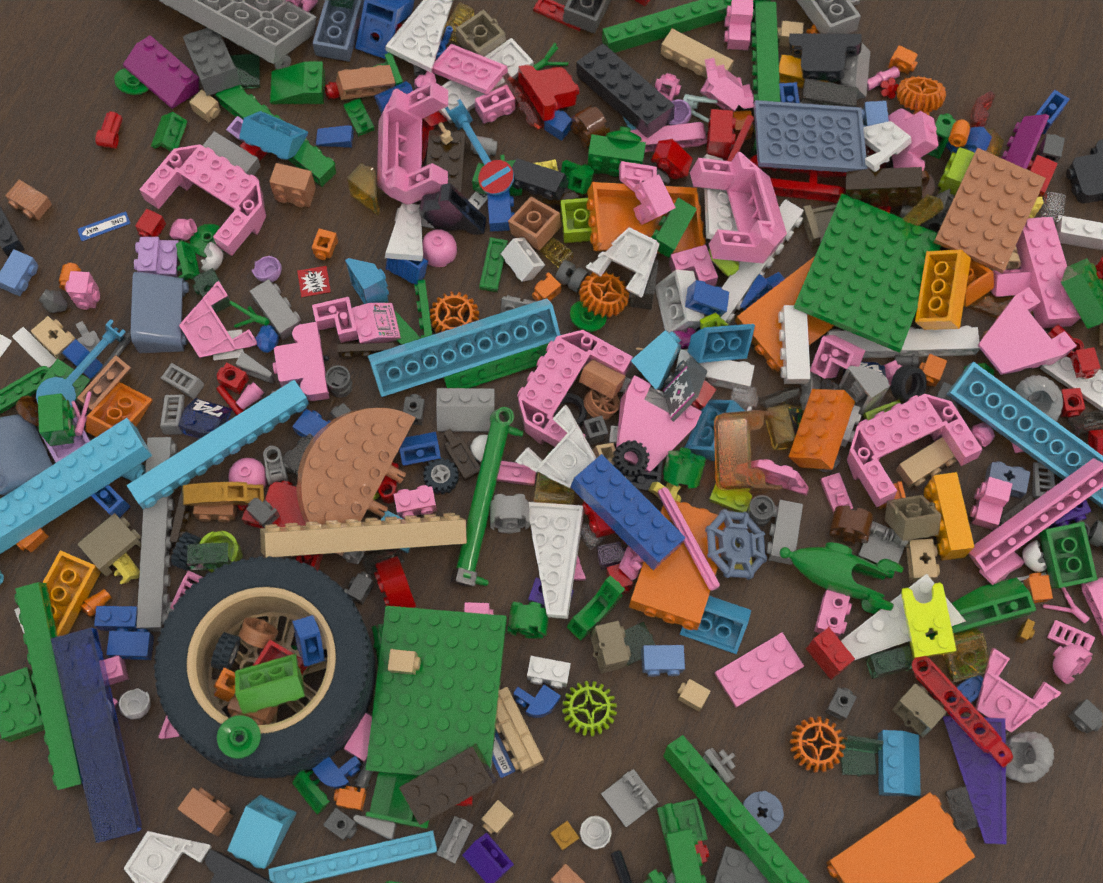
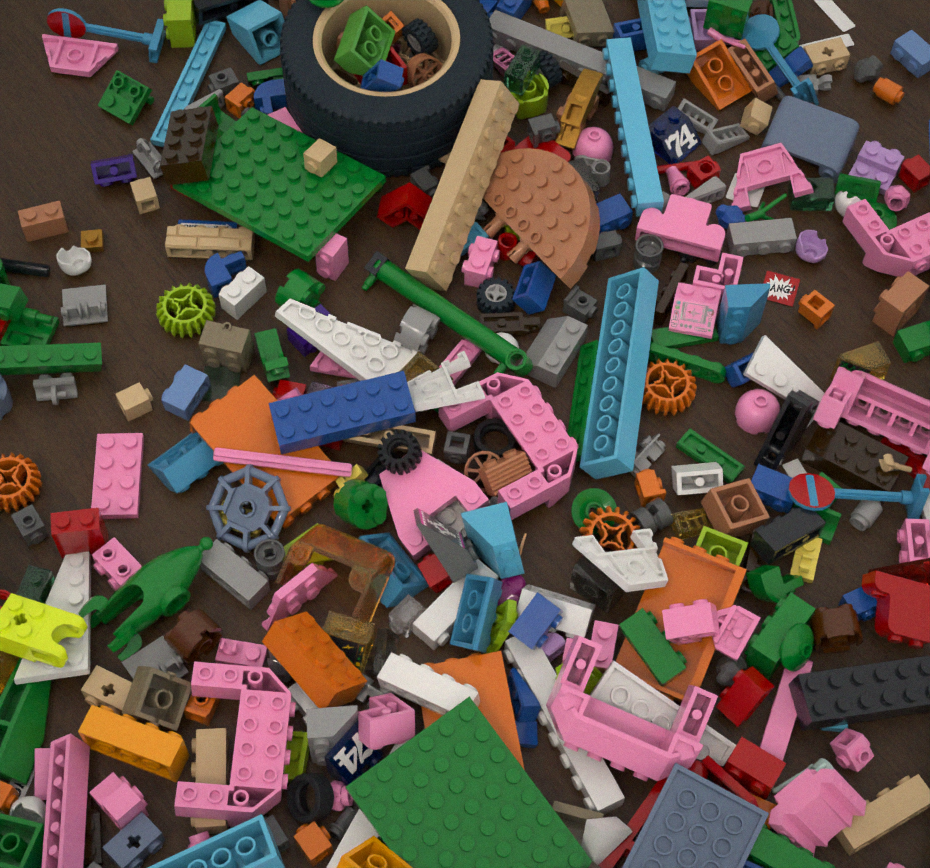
camera: 120 degrees right, 10 degrees down
(82, 290) = (864, 89): bright pink brick -> none
(152, 362) = (756, 116): none -> tan brick
(682, 112) = (809, 744): lavender hair -> none
(819, 198) = (603, 836): none -> white slope

